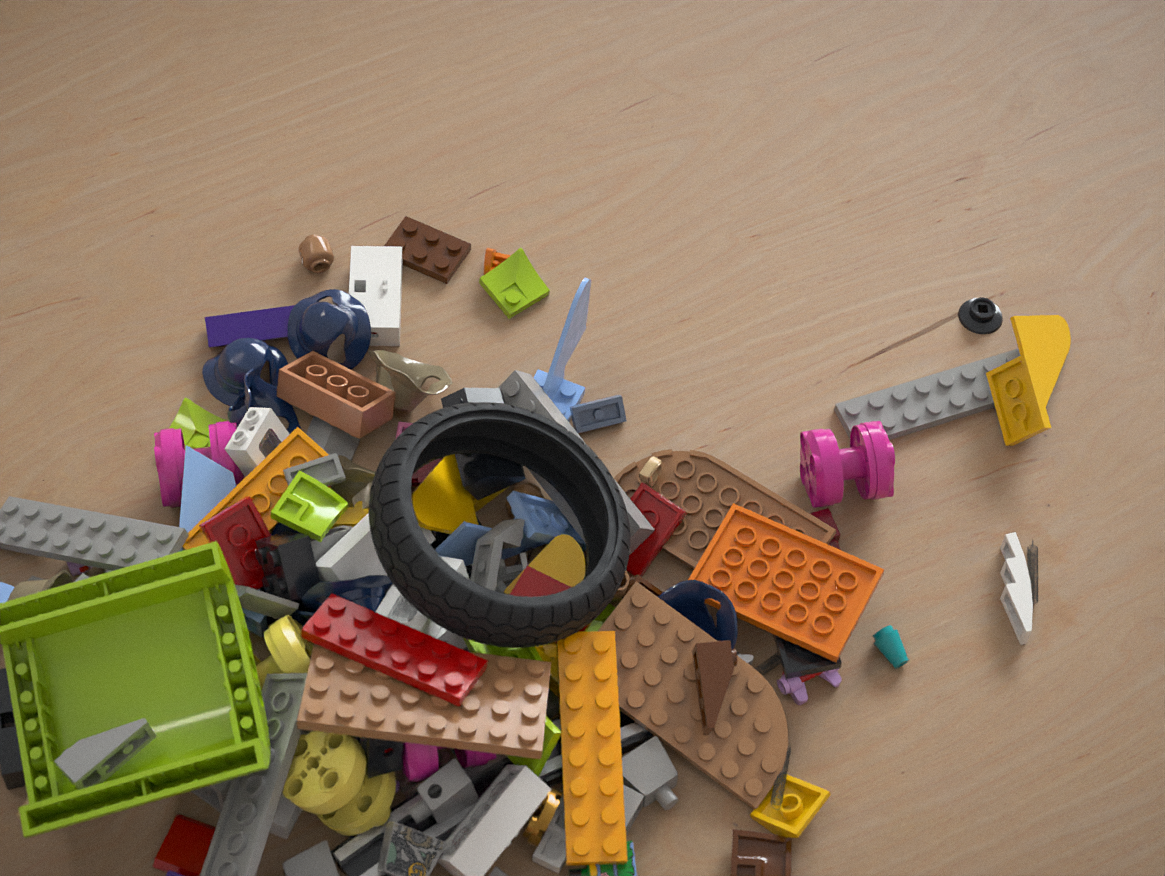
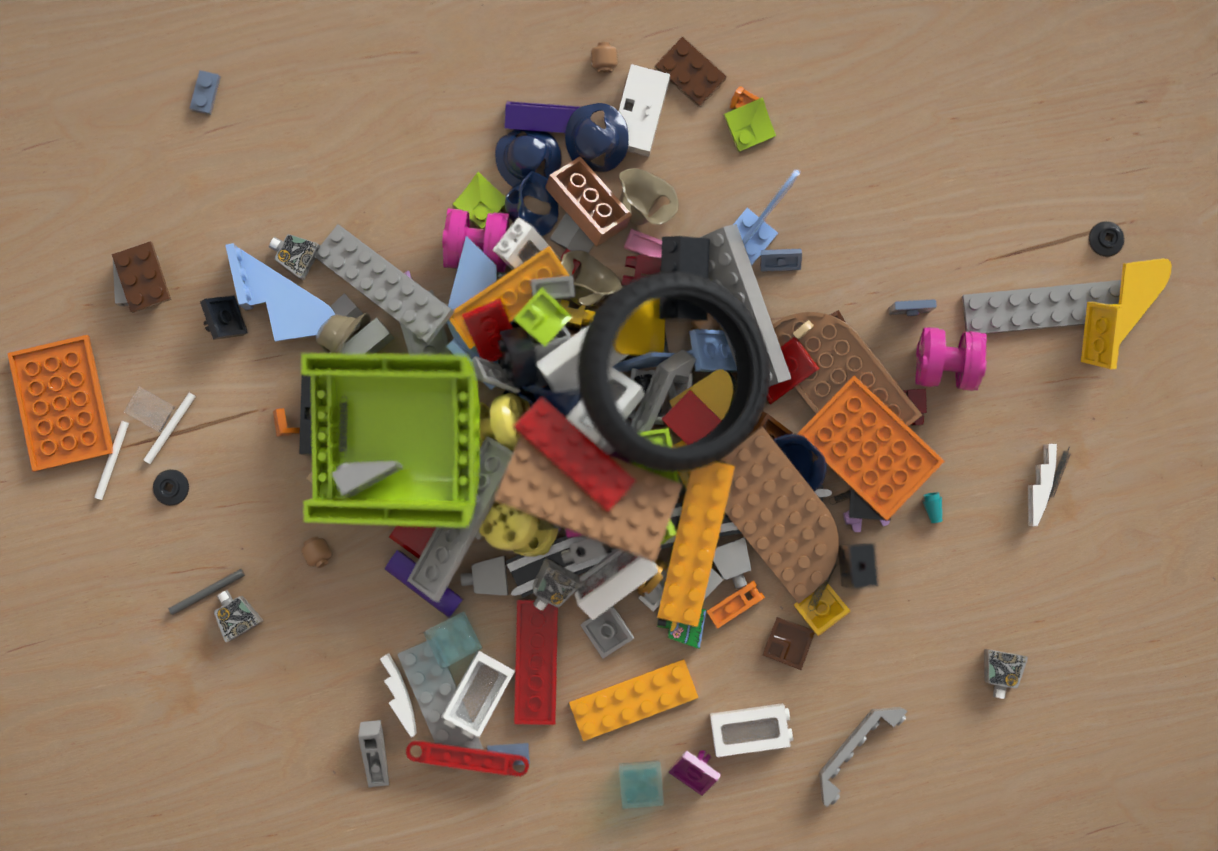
camera: 20 degrees right, 30 degrees up
(62, 716) = (342, 426): none -> dark grey piece
(669, 832) = (734, 604): none -> orange plate
(713, 670) = (795, 514): reddish brown slope -> none
(778, 423) = (912, 308): none -> sand blue plate
(819, 720) = (858, 565): none -> black brick
(1061, 823) = (1003, 670): none -> torso

